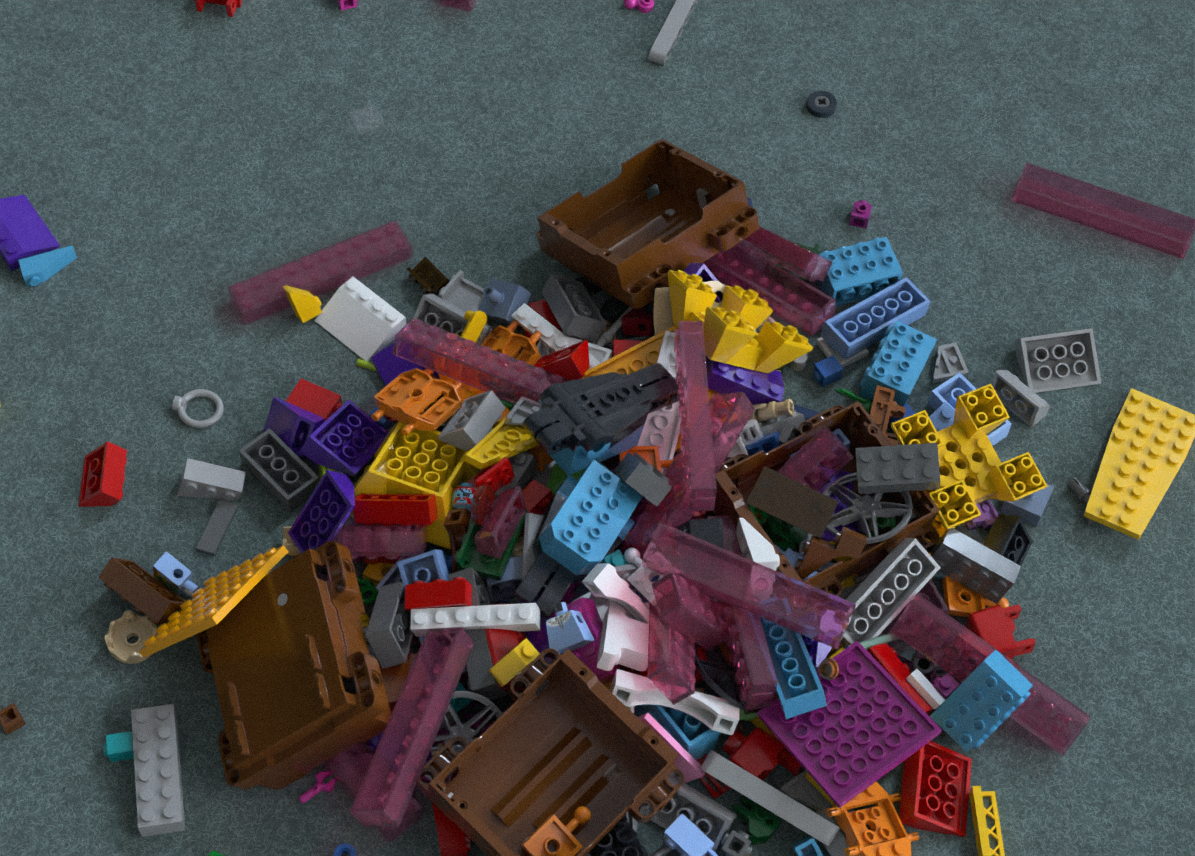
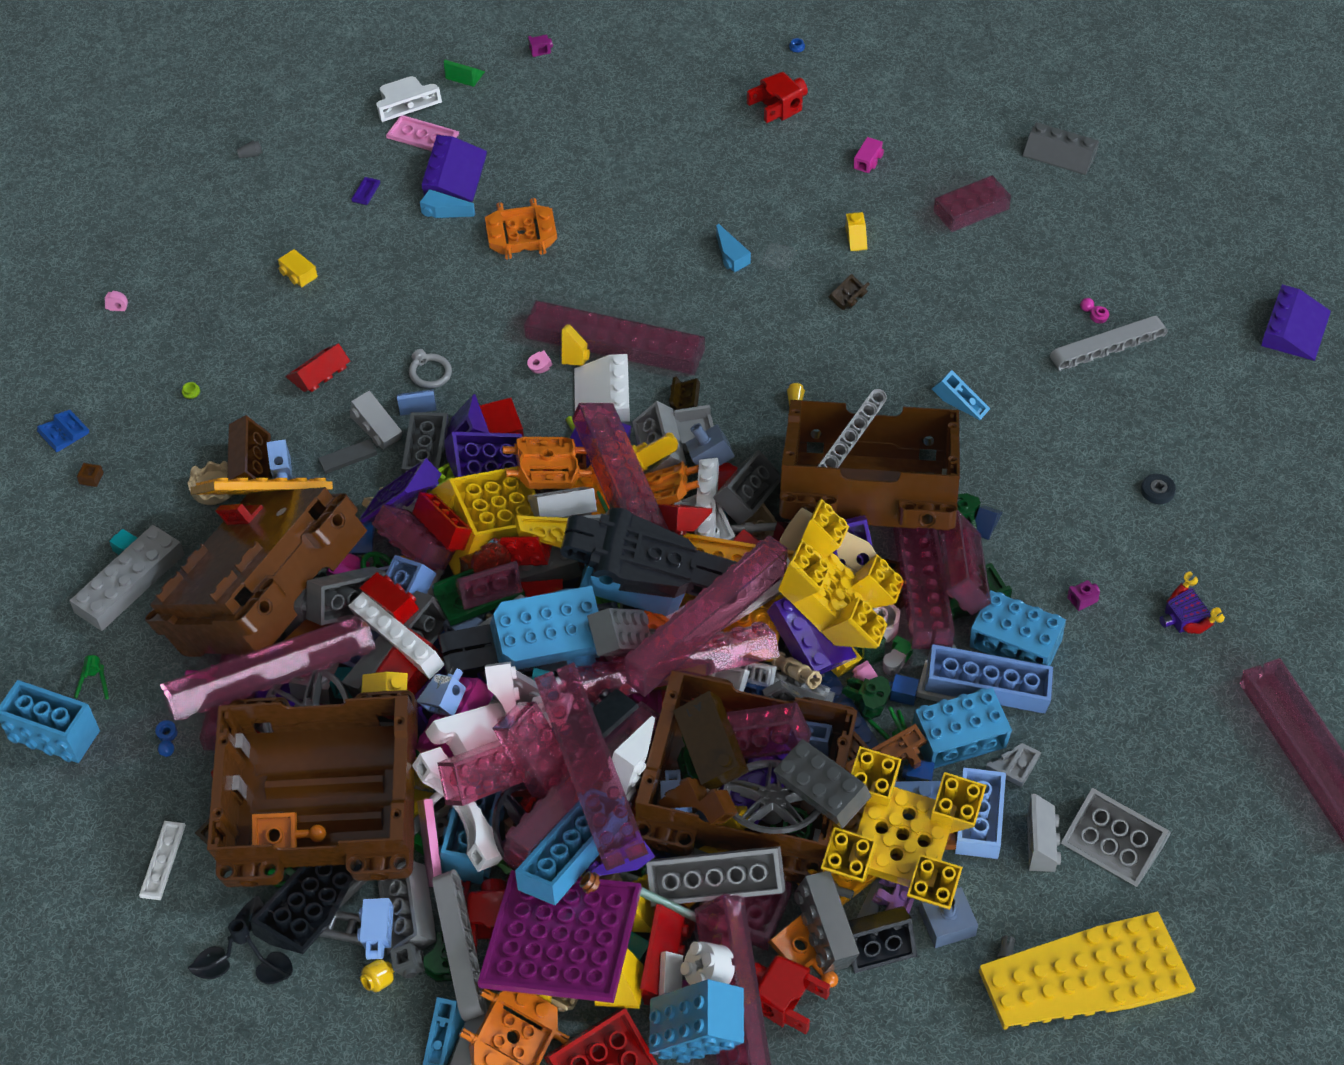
camera: 50 degrees right, 5 degrees down
(10, 581) = (190, 390): none -> lime plate
(116, 246) = (521, 219): none -> orange piece
(221, 439) = (416, 402): none -> medium blue slope
(230, 632) = (238, 513): none -> red panel
(286, 334) = (539, 362): none -> bright pink piece
(330, 139) = (733, 253): none -> dark azure slope
(405, 58) = (856, 231): none -> yellow slope
(456, 110) = (848, 291): none -> dark brown bracket
(508, 217) = (795, 392): none -> yellow cone
(610, 210) = (853, 433): none -> light grey beam
(619, 131) = (958, 394): none -> dark azure slope
(793, 381) = (864, 671): none -> bright pink piece
(811, 393) = (869, 695): none -> dark green hinge
(934, 175) = (1187, 610): none -> torso
(959, 649) = (708, 962): none -> white brick

